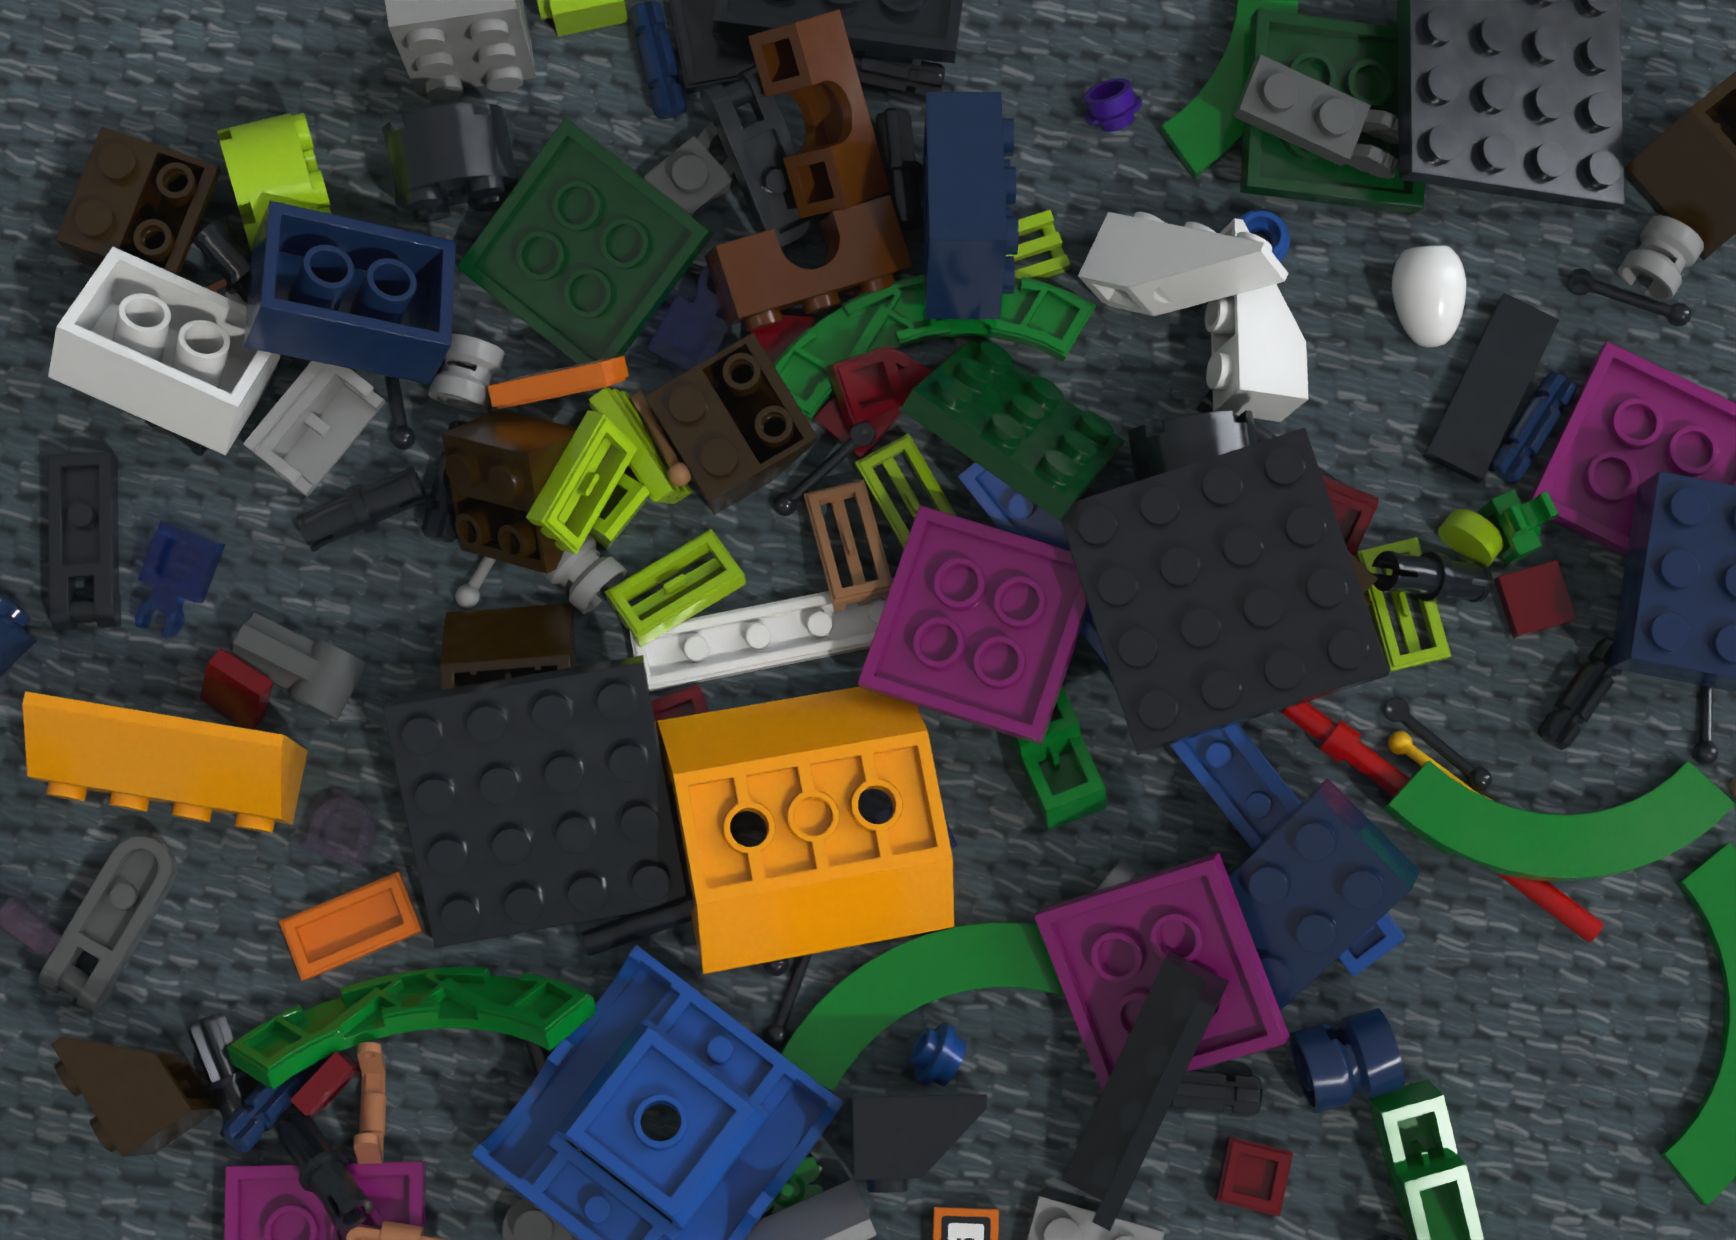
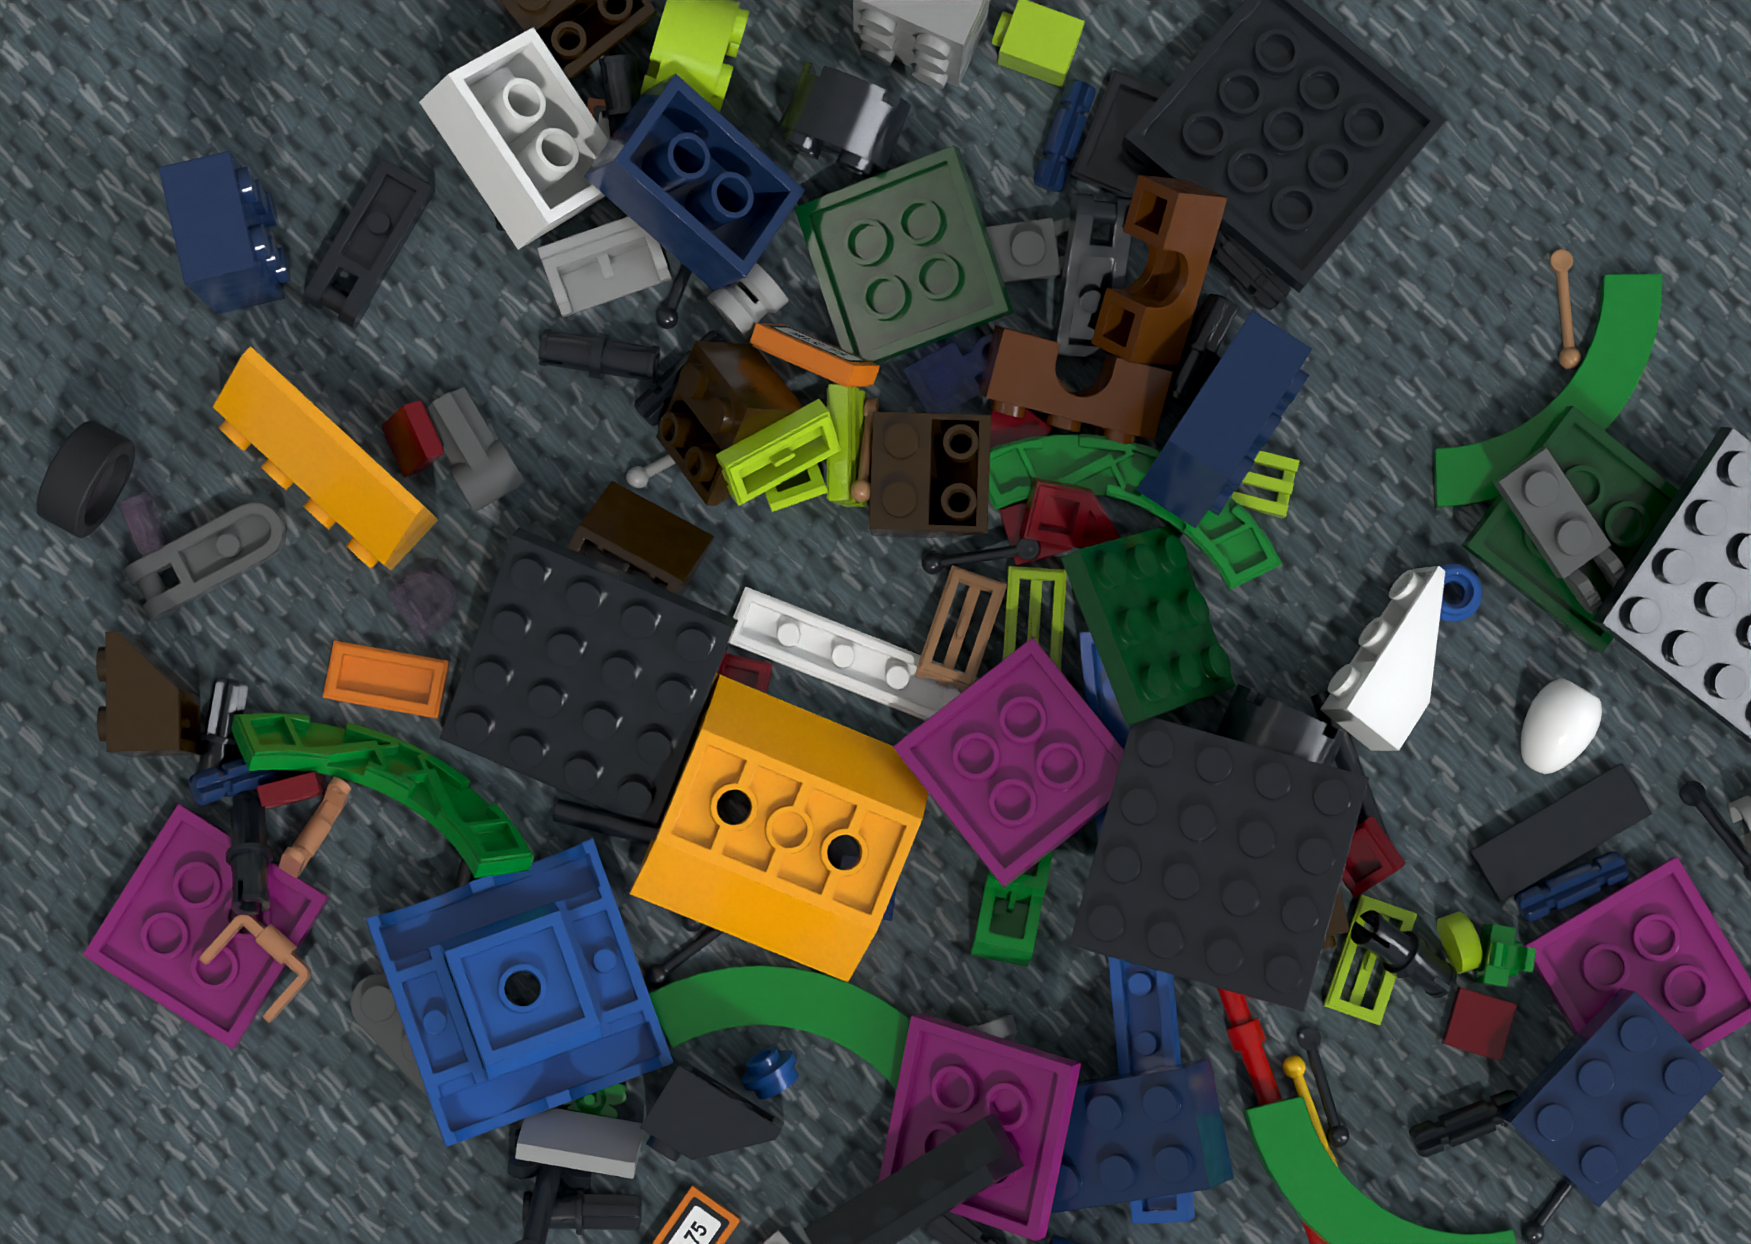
camera: 35 degrees right, 5 degrees up
(180, 569) = (427, 312): clear blue plate -> none
(586, 575) = (740, 524): light grey wheel -> none
(683, 587) = (803, 597): lime tile -> none
(1111, 104) = (1406, 405): dark purple plate -> none
(1169, 267) = (1355, 572): white slope -> none

